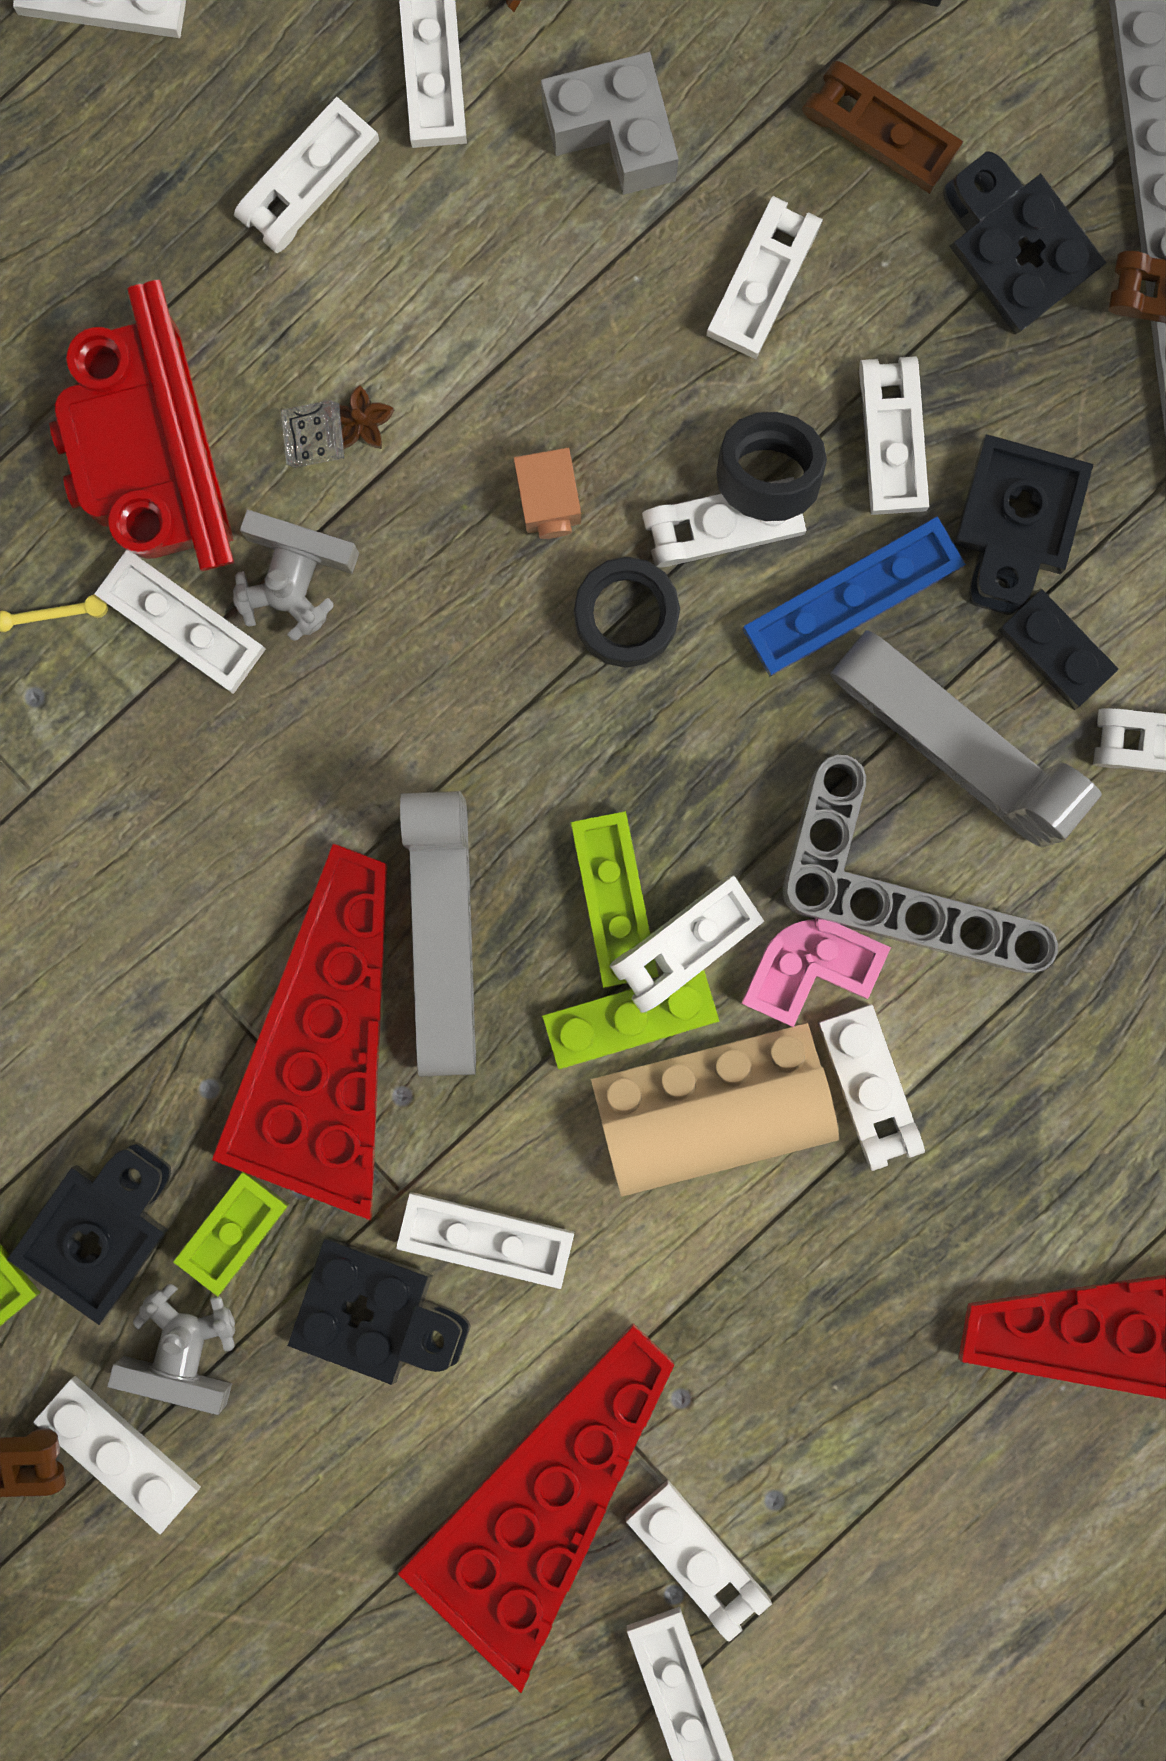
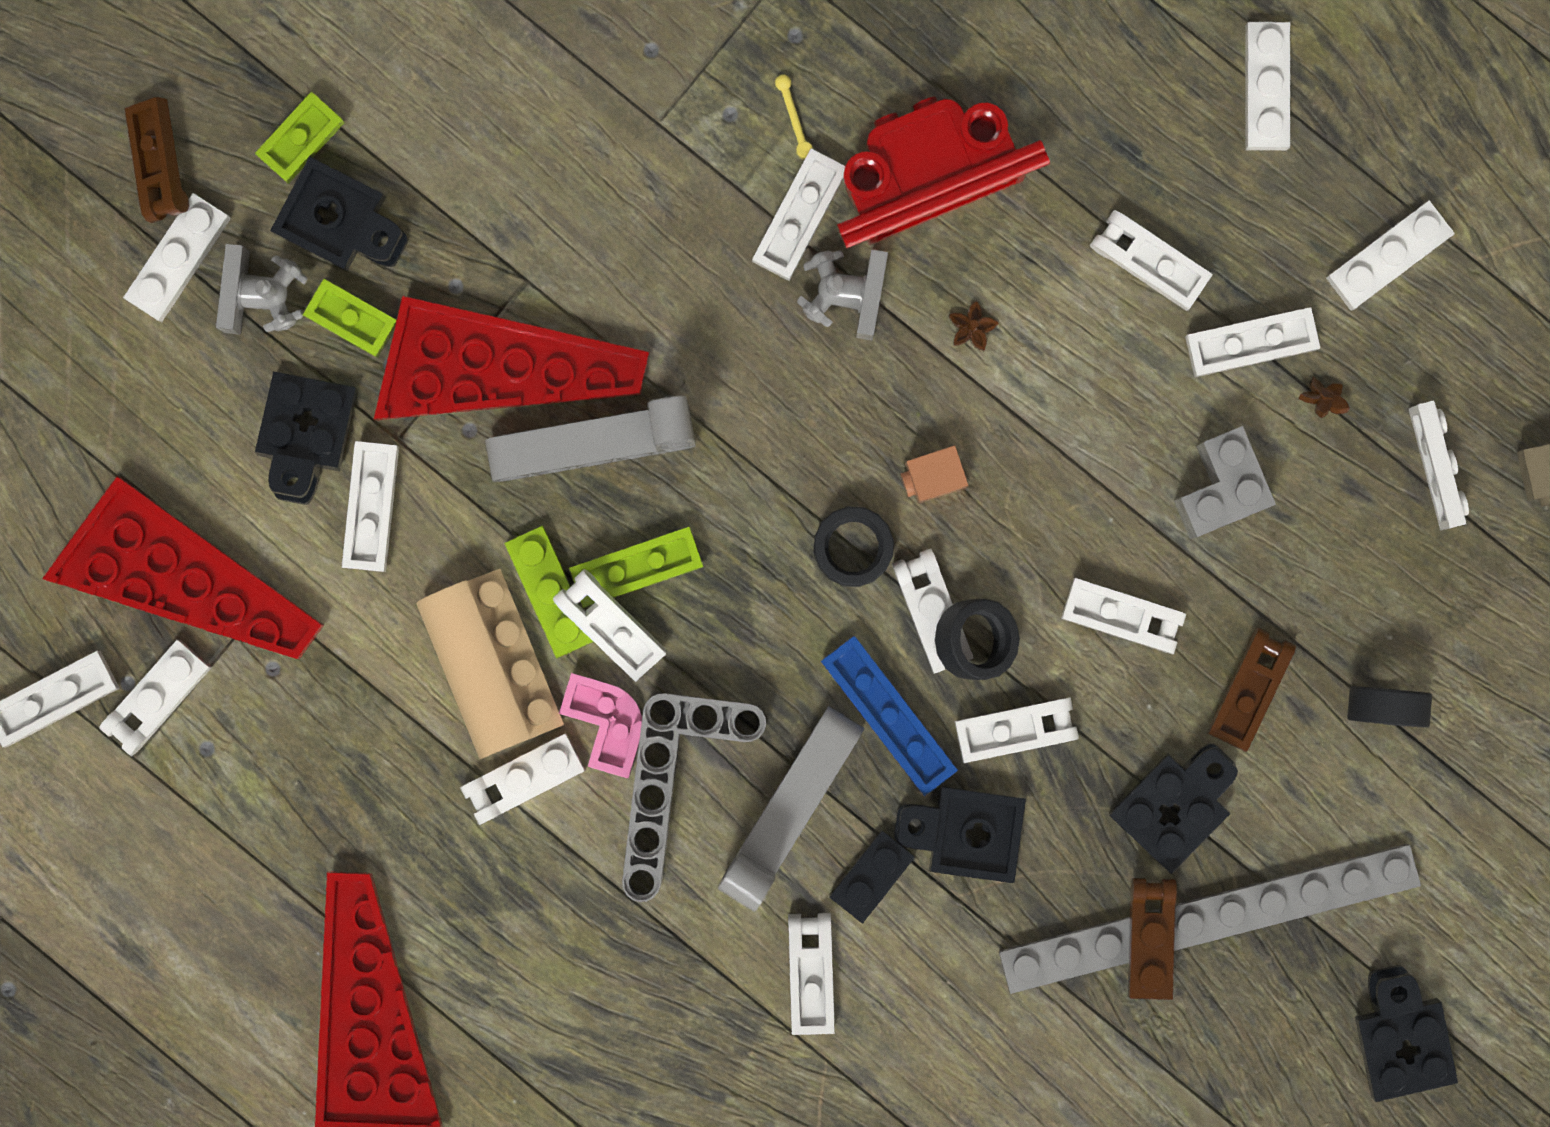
camera: 85 degrees right, 0 degrees up
(312, 434) = (955, 292): clear tile -> none

